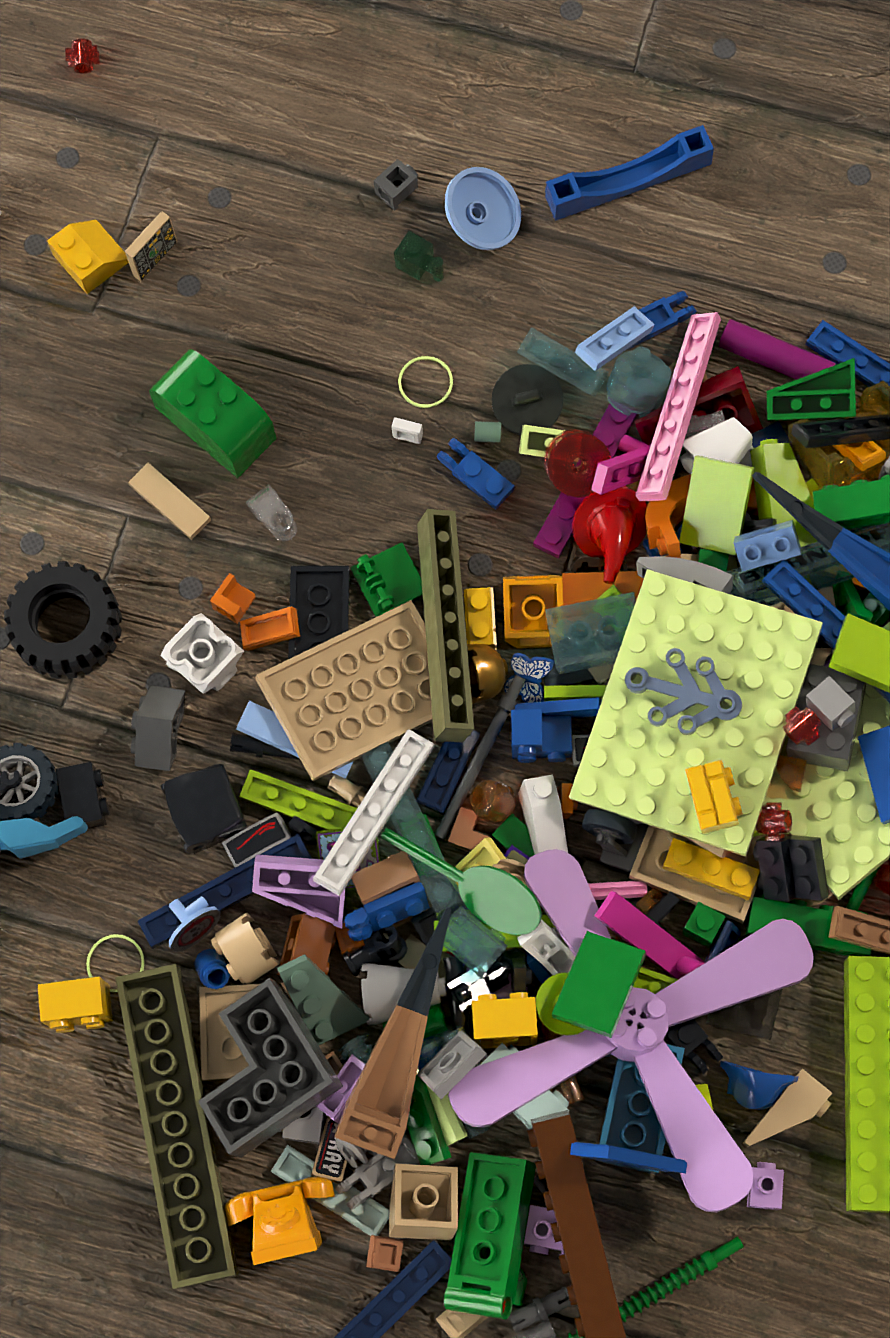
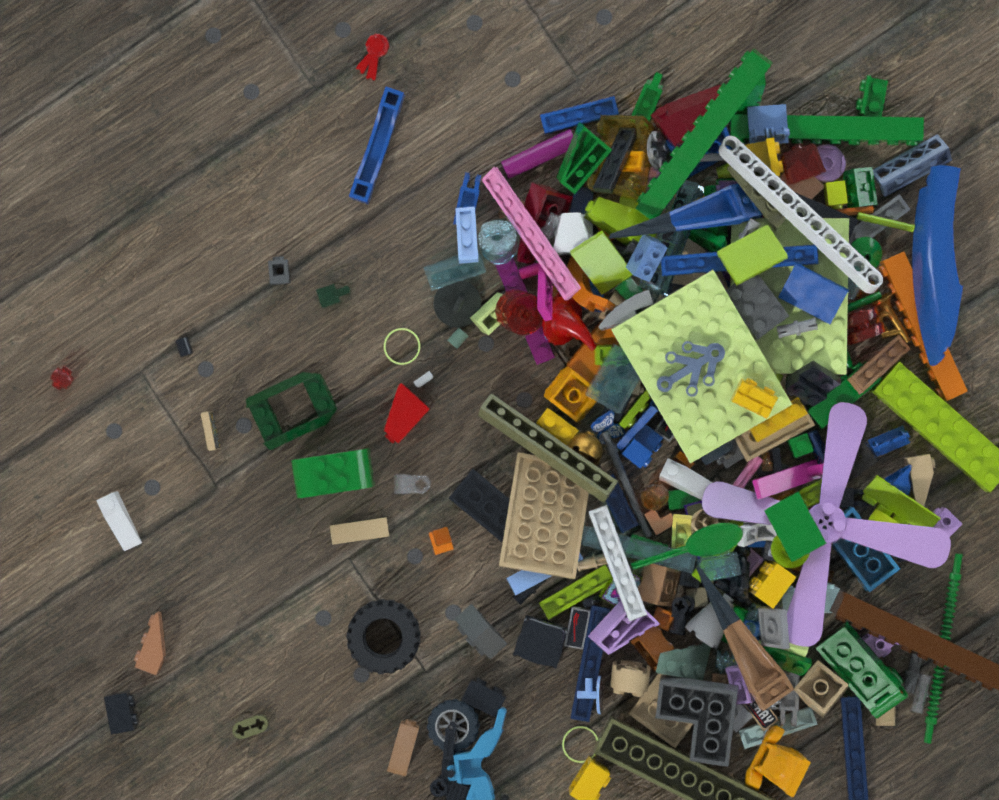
camera: 55 degrees left, 15 degrees up
(87, 253) = (183, 464): yellow slope -> none
(203, 654) = (461, 581): white piece -> none
(211, 969) = (626, 702): blue brick -> none
(214, 302) = (267, 421): none -> dark green wedge
(225, 153) = (184, 347): none -> black hinge
(269, 628) = (472, 535): orange tile -> none
(346, 436) = (404, 414): none -> red slope
(384, 1253) = (827, 725): nougat tile -> none
(386, 911) = (669, 596): blue hinge -> none
(388, 579) = (495, 453): green hinge -> none
(477, 475) = (477, 362): blue hinge -> none
(490, 200) = (337, 231): light blue dish -> none
(520, 975) = (754, 557): black plate -> none
(628, 1157) = (888, 582): blue tile -> none
(737, 93) = (376, 46): none -> red piece
(737, 1098) = (893, 500): none -> lime windscreen
(774, 821) = (786, 374): clear red gear -> none
(791, 771) = (767, 343): clear orange tile -> none
(802, 726) = (756, 325): clear red gear -> none
(803, 1034) = (889, 441): none -> blue hinge
(831, 704) = (758, 302): light grey brick -> none
(842, 788) = (797, 327): none -> light grey pin

